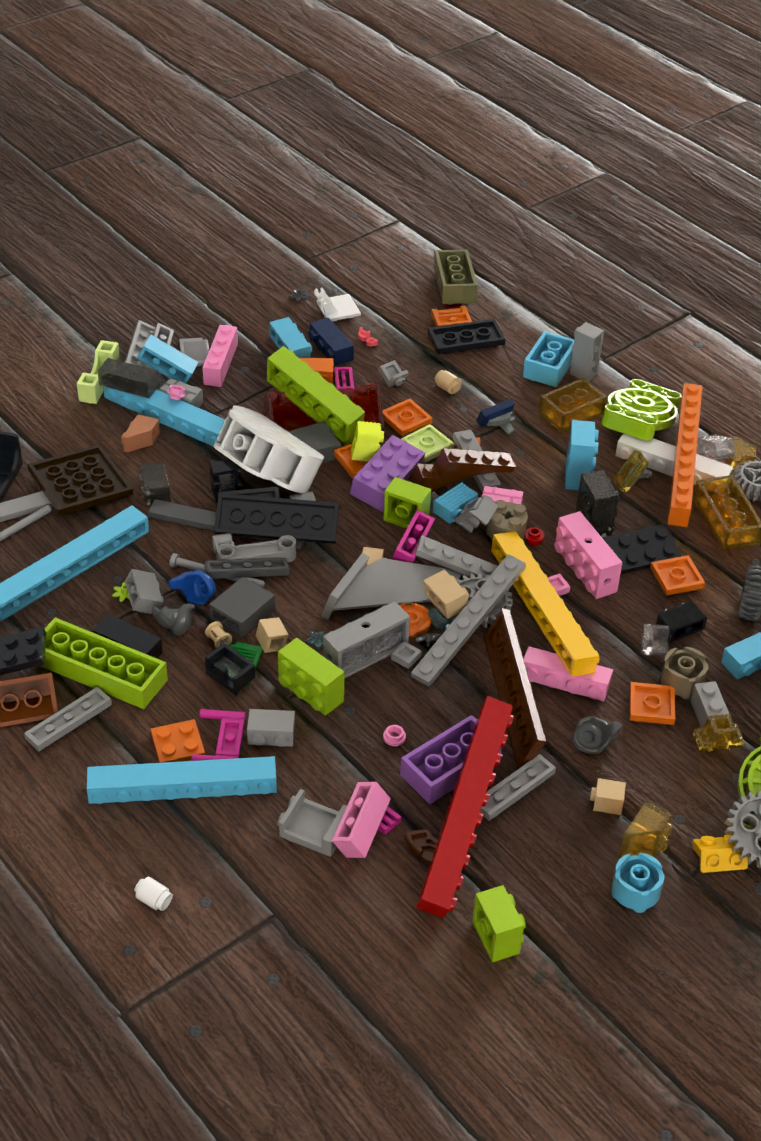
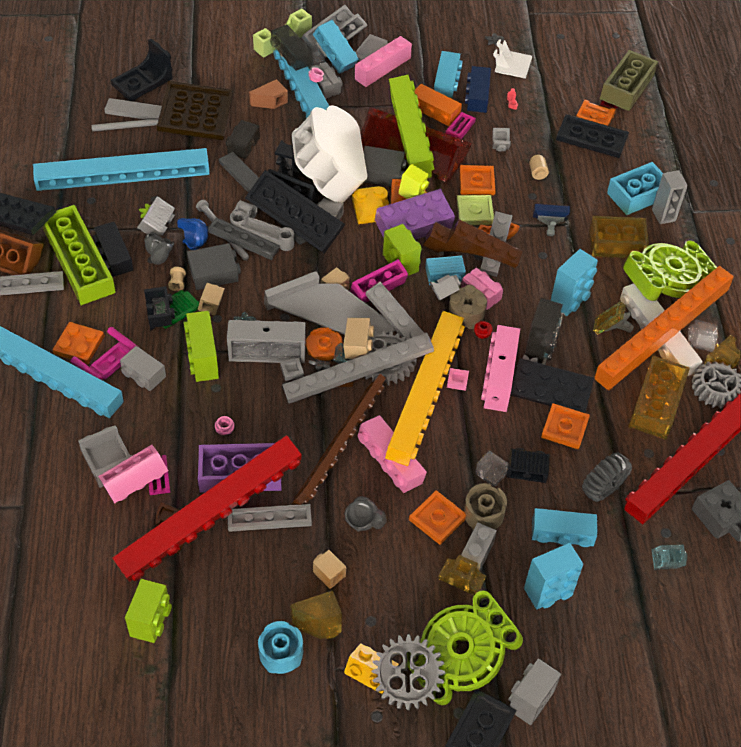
camera: 35 degrees right, 10 degrees up
(332, 482) = (367, 201): none -> yellow slope

